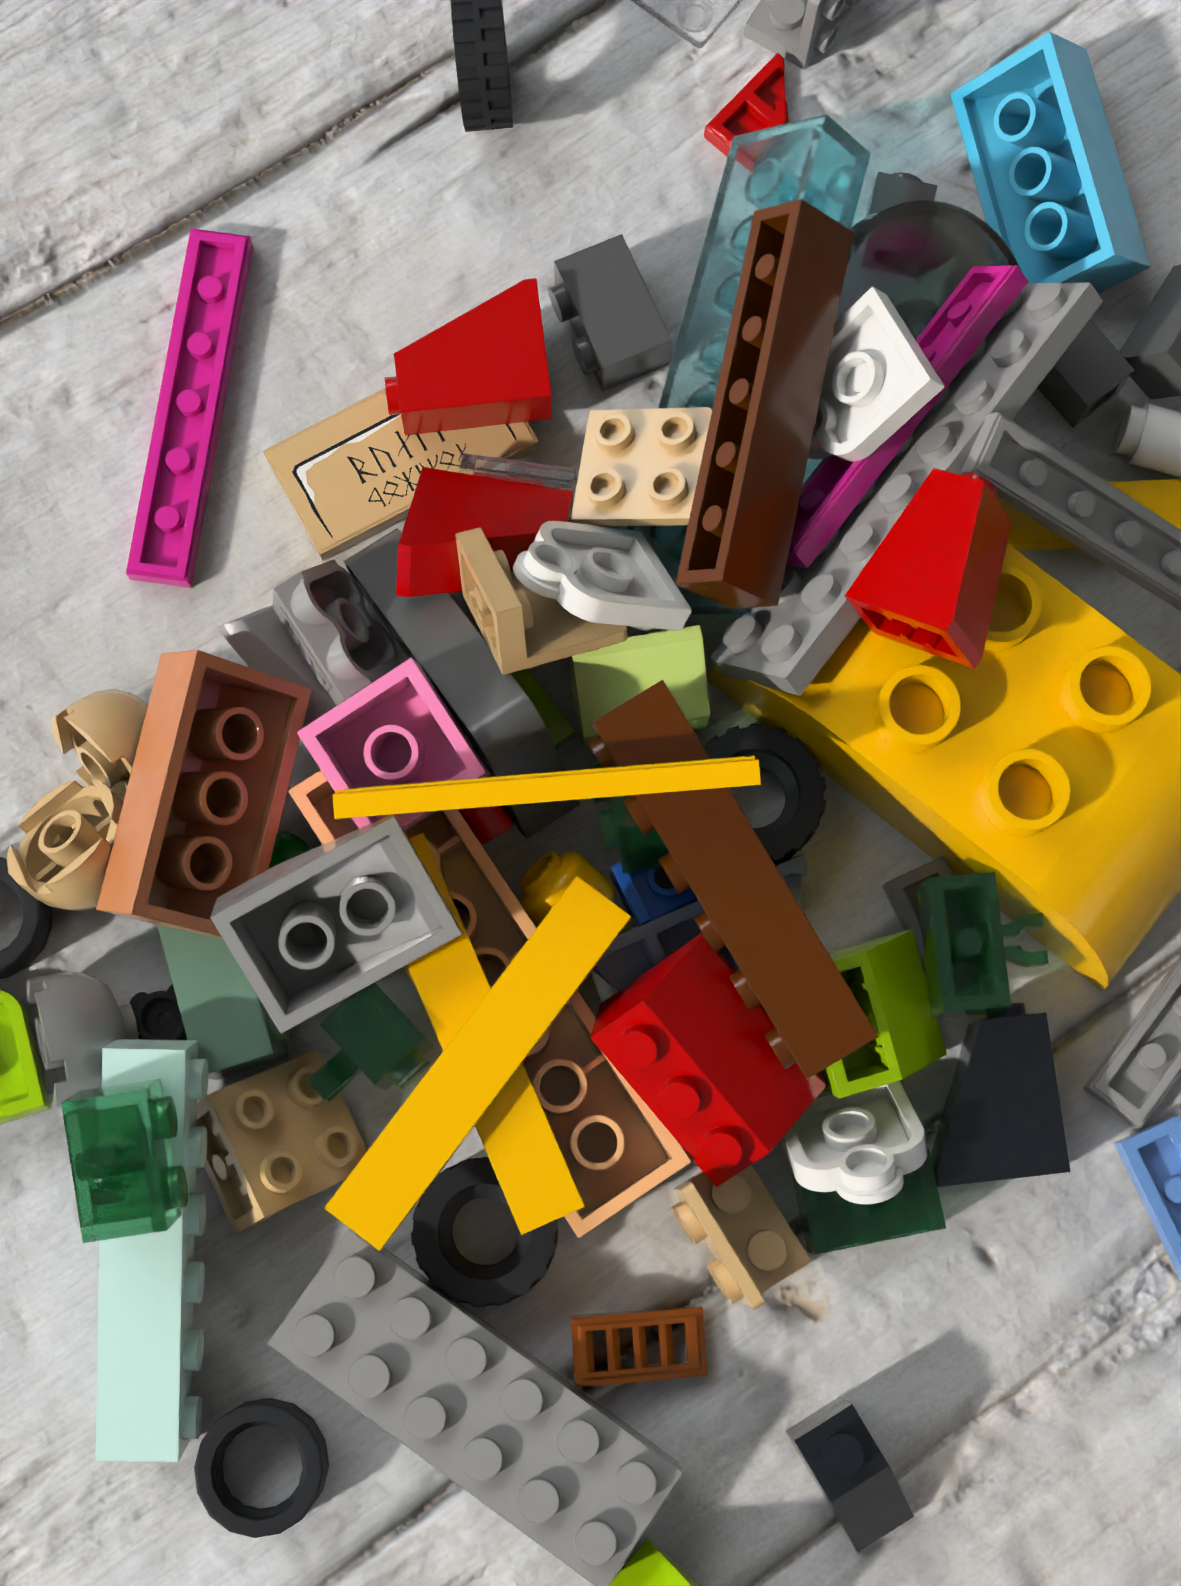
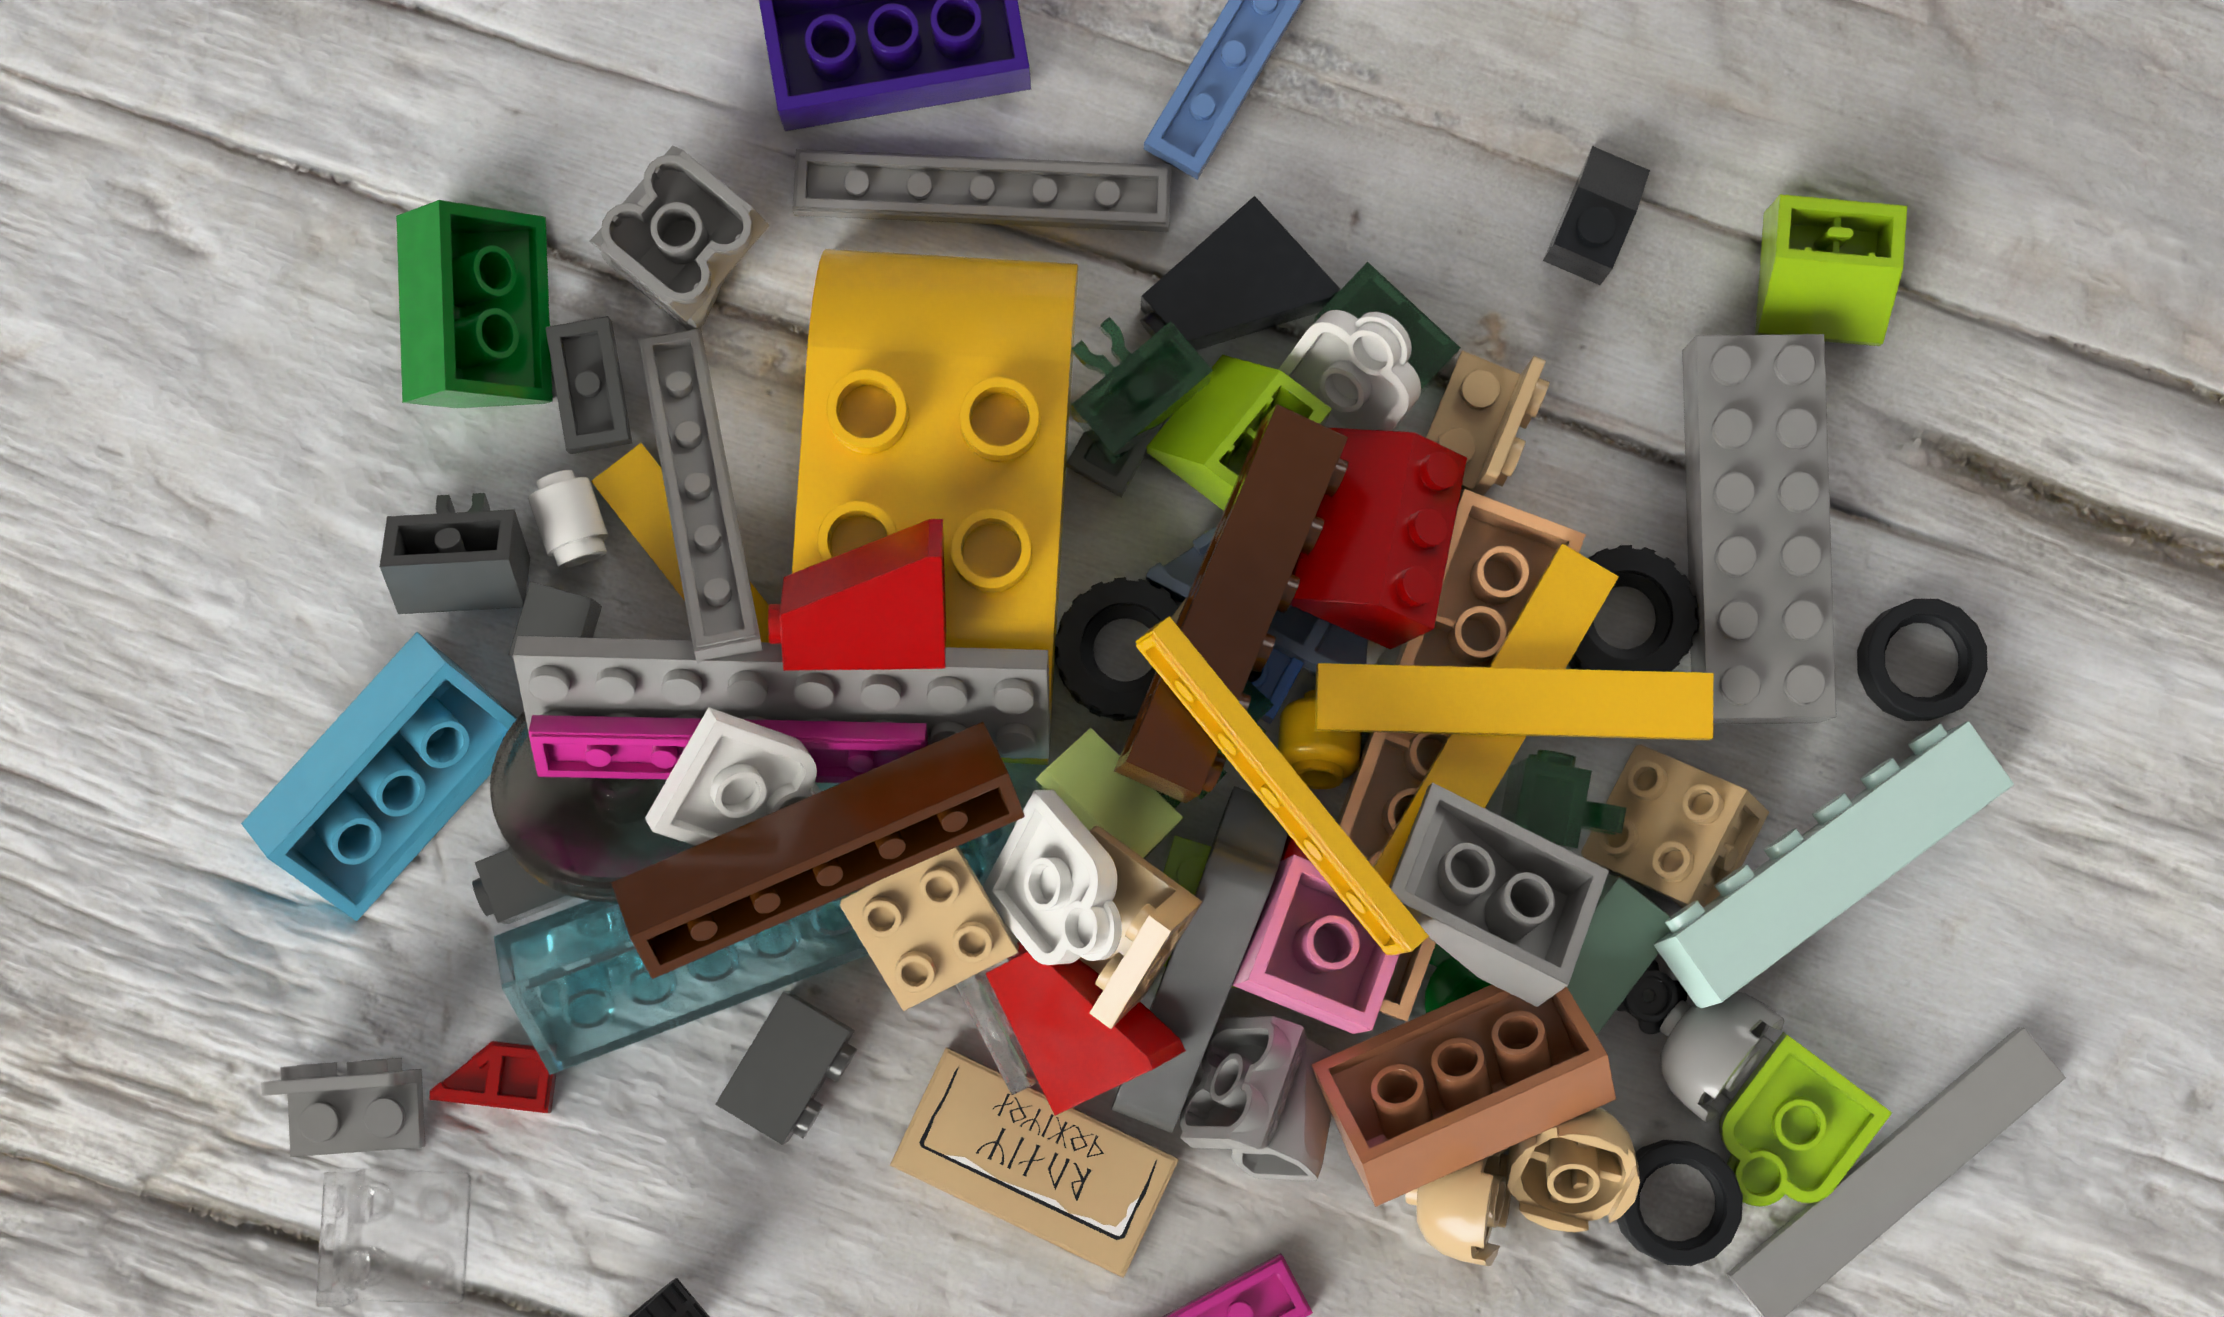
camera: 125 degrees left, 5 degrees up
(124, 1160) = (1792, 917): clear green brick -> none
(476, 368) = (926, 1140): red slope -> none
(583, 1355) = (1639, 423): dark orange slope -> none

